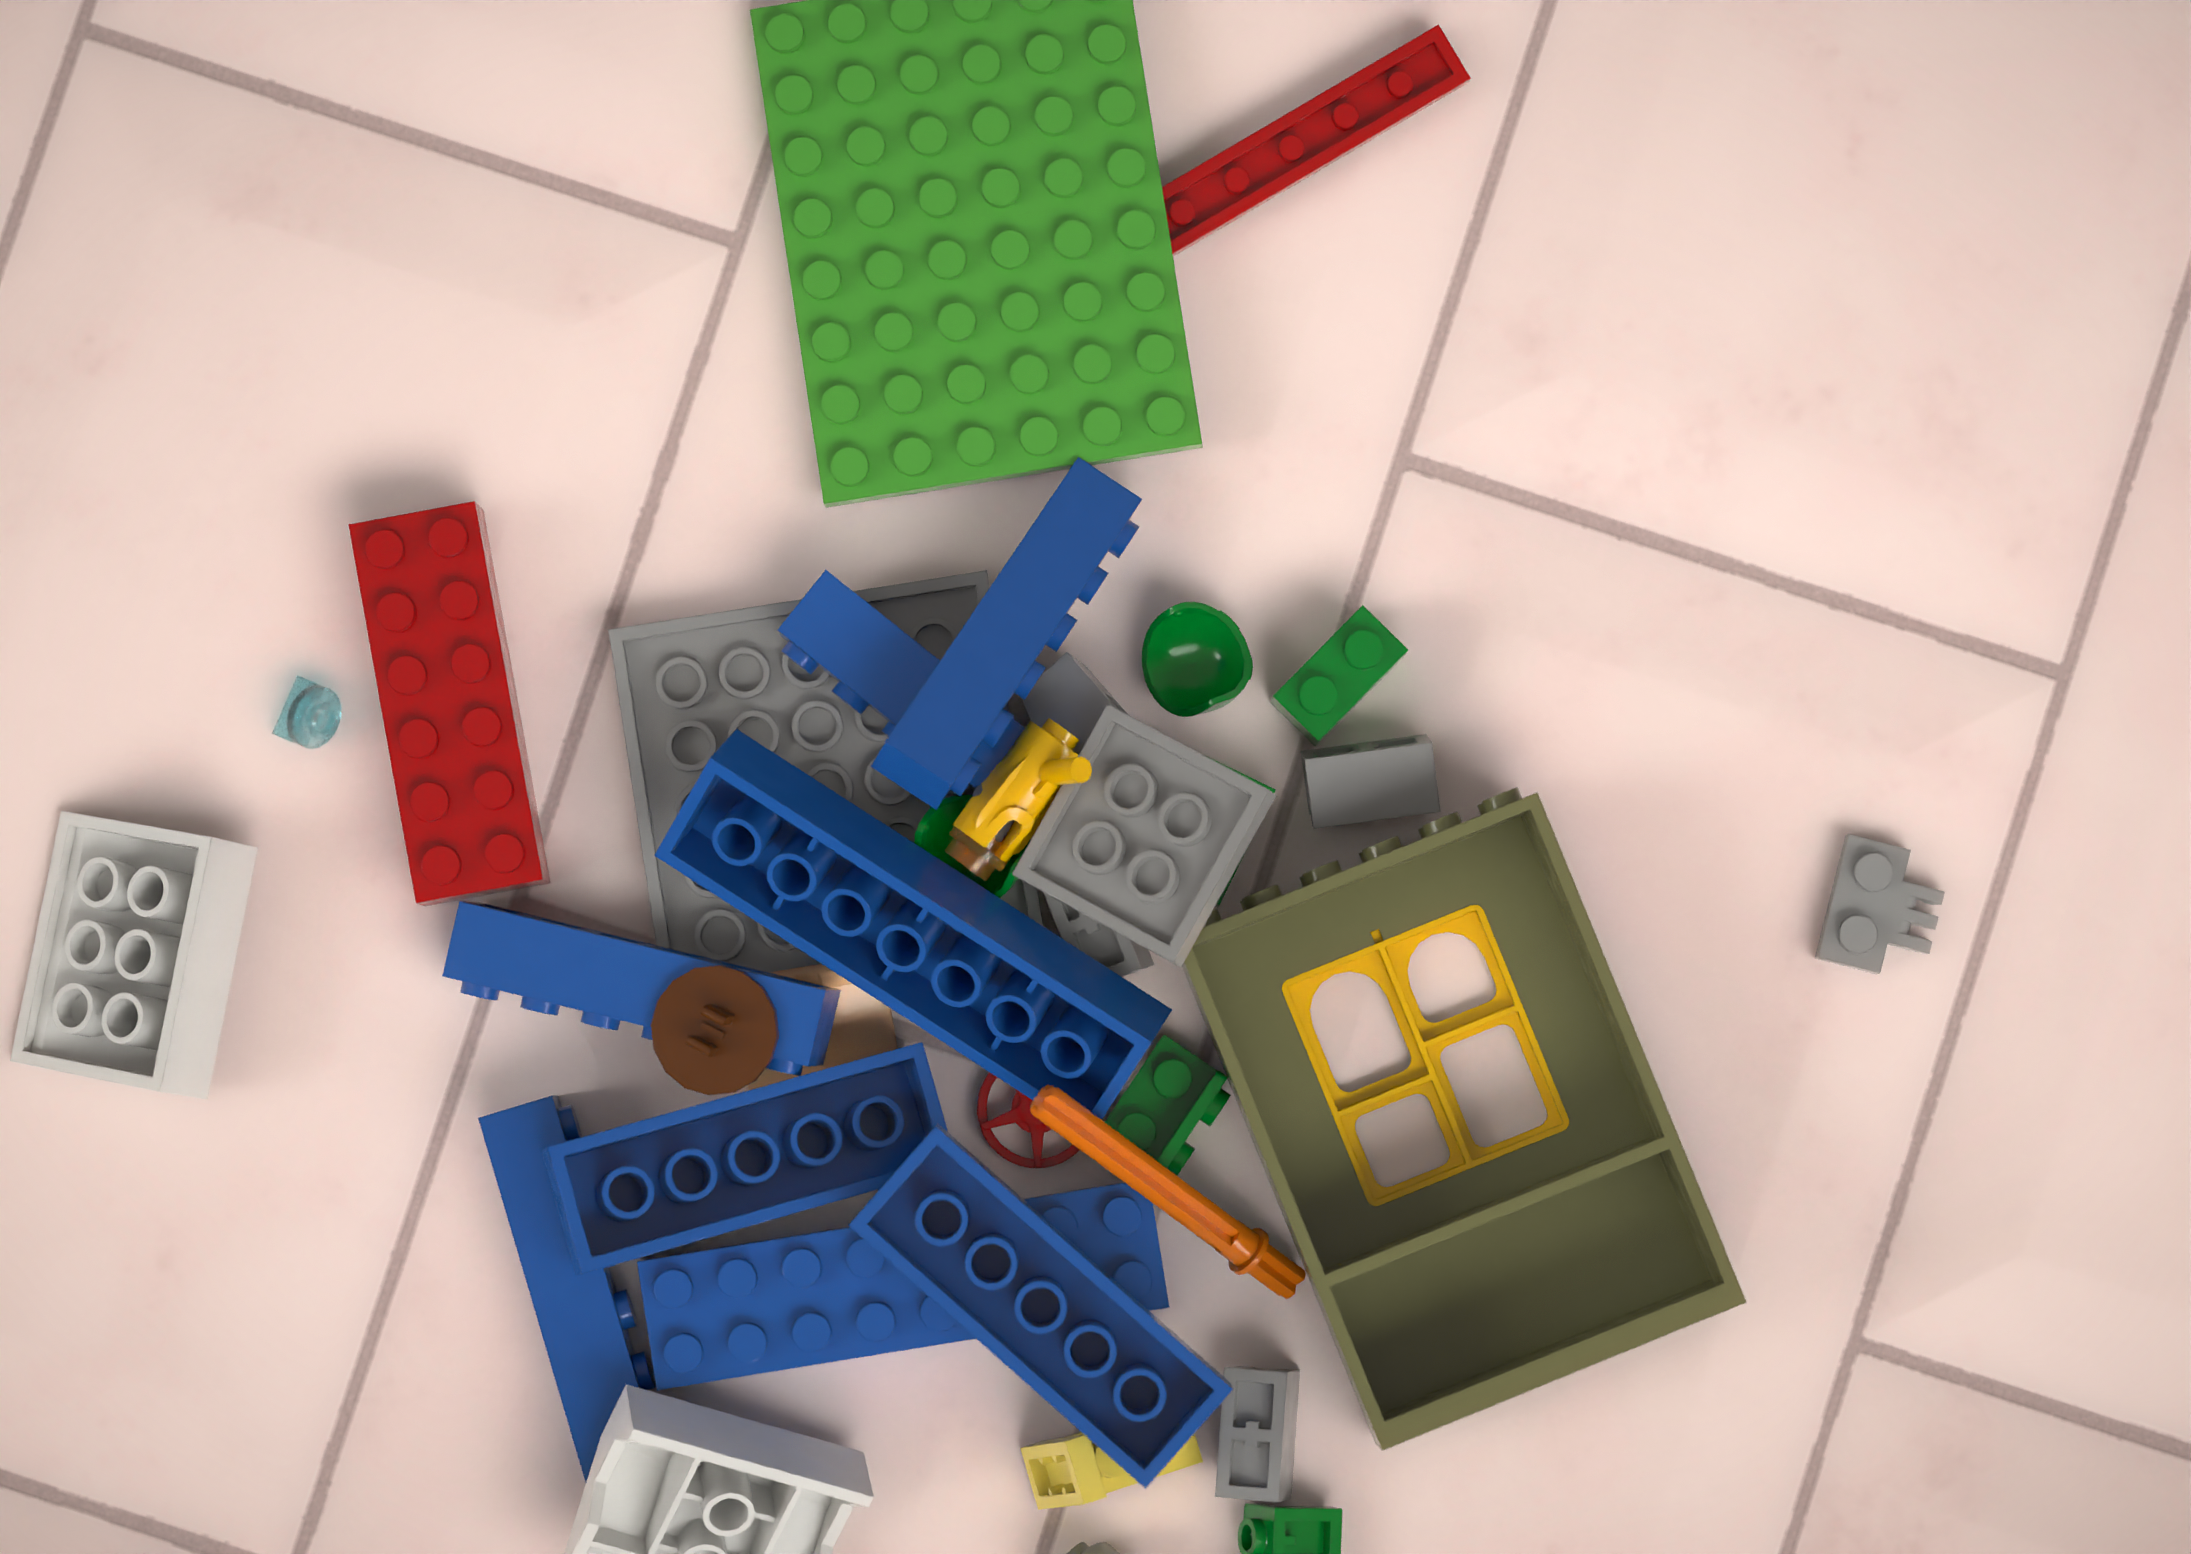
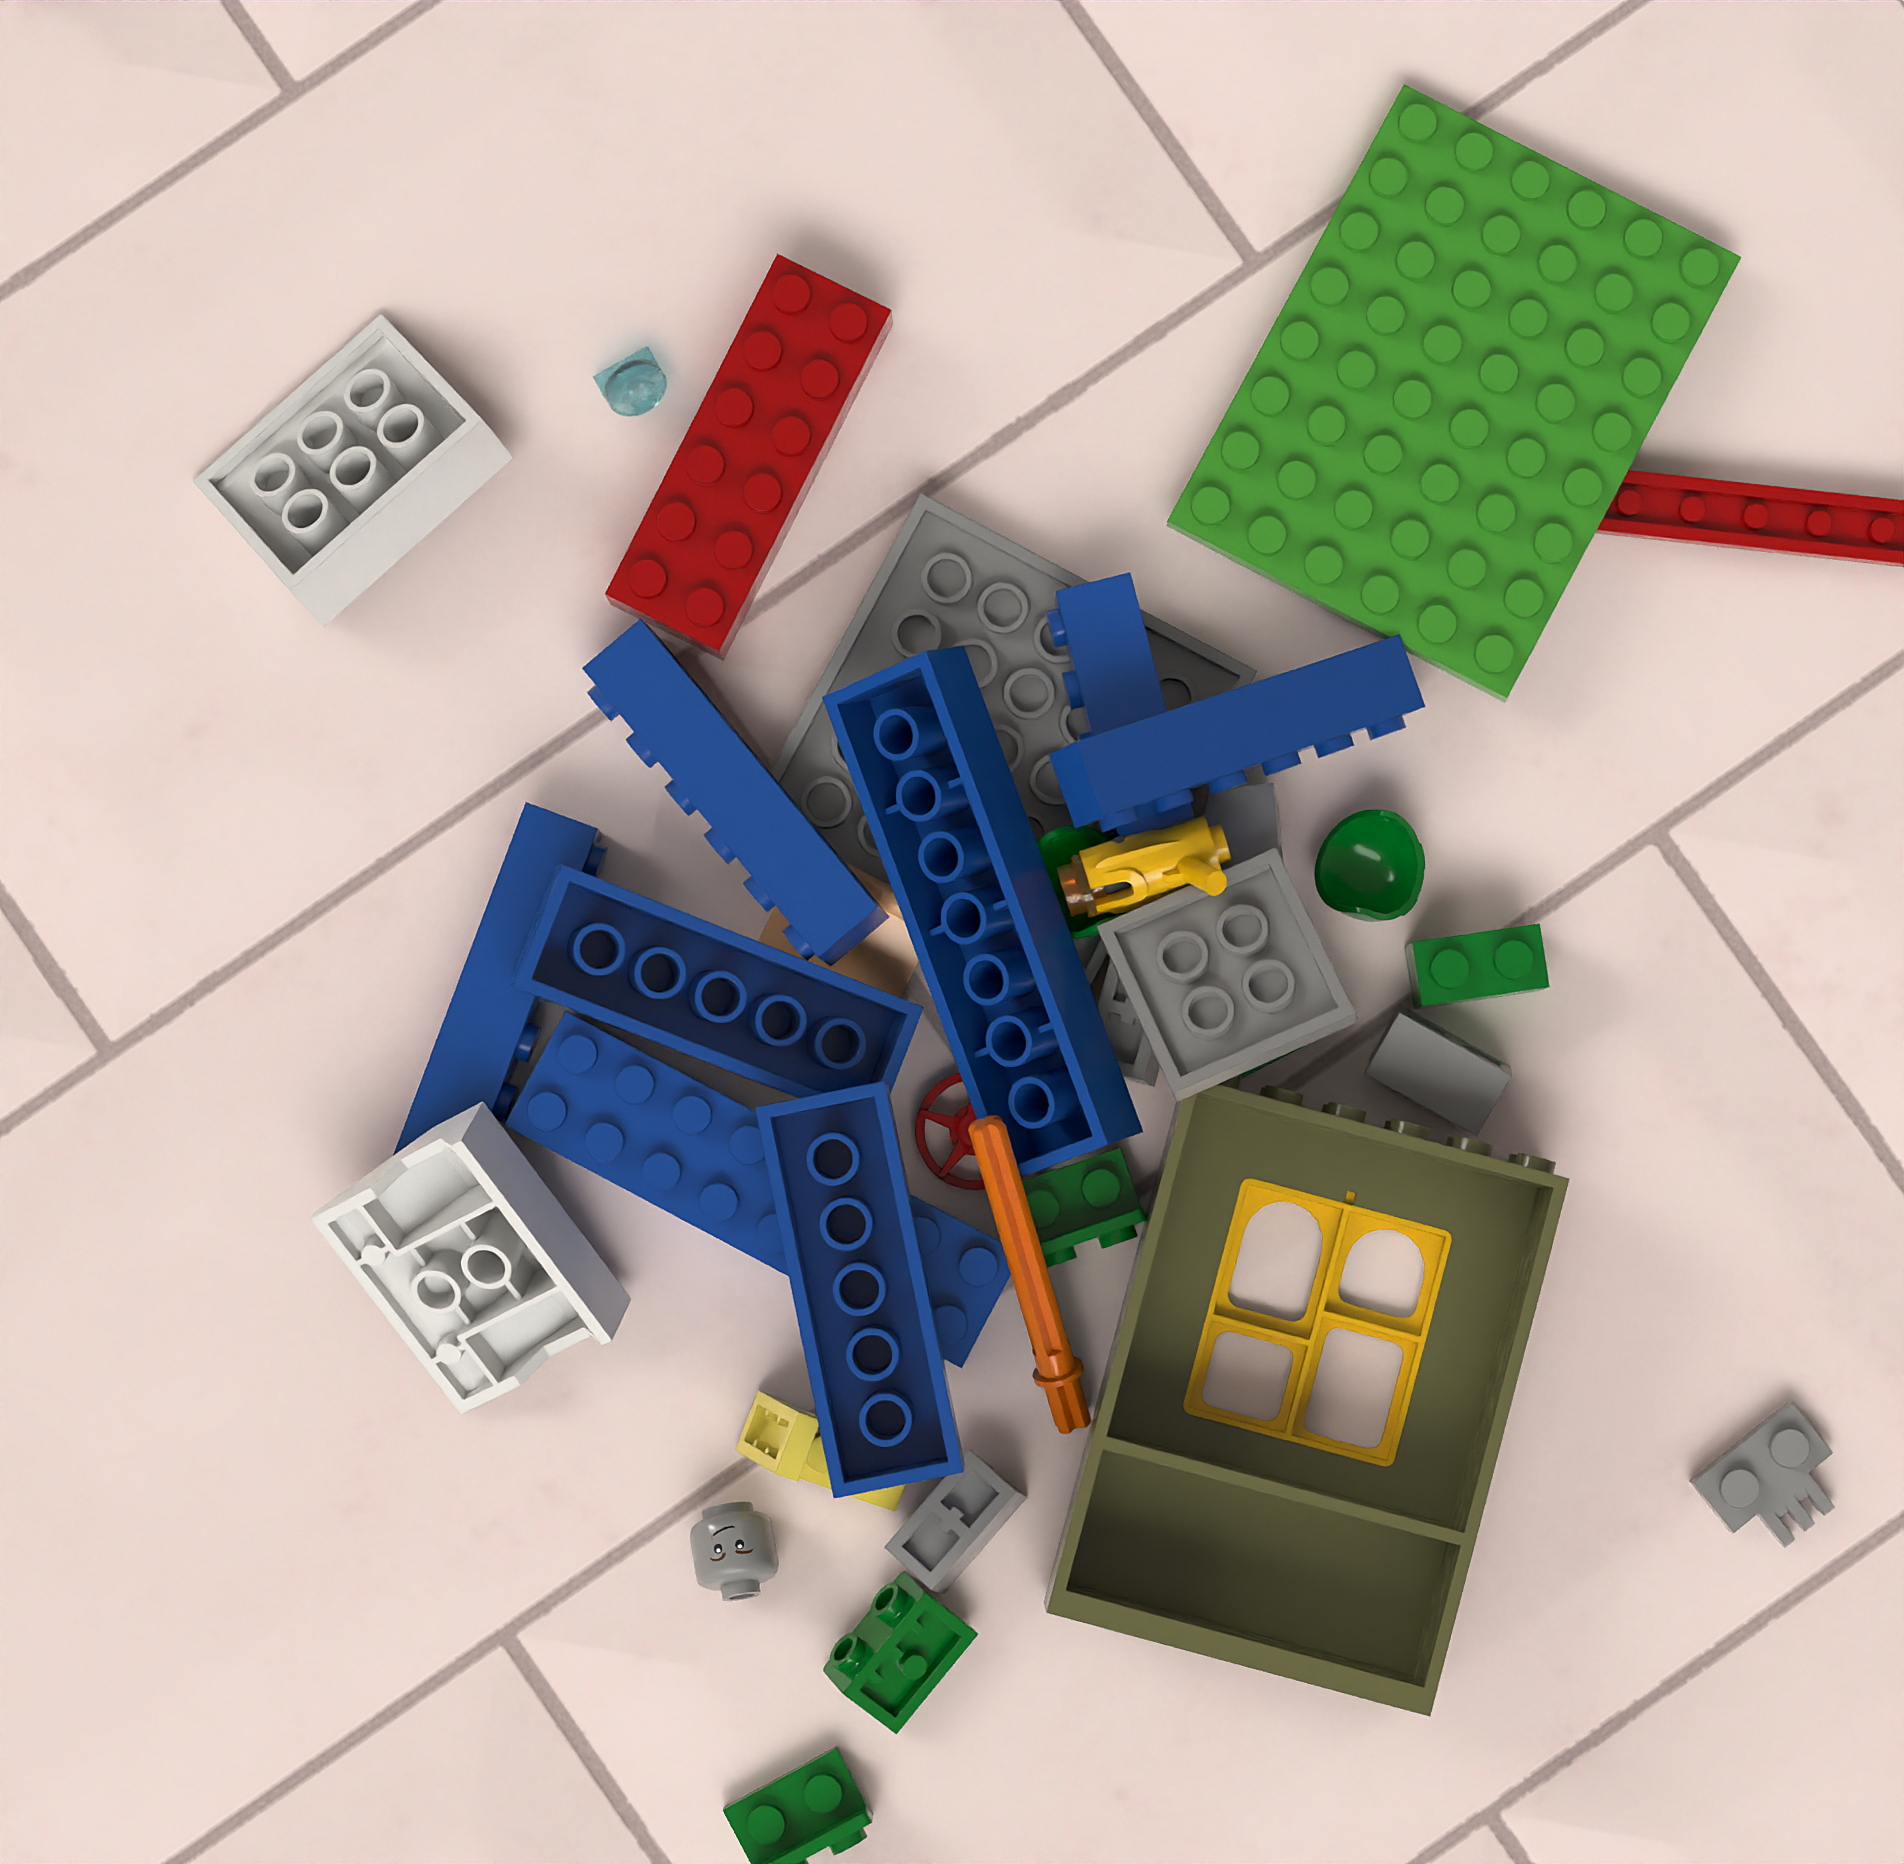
camera: 40 degrees right, 0 degrees up
(714, 1030) = (765, 872): reddish brown piece -> none

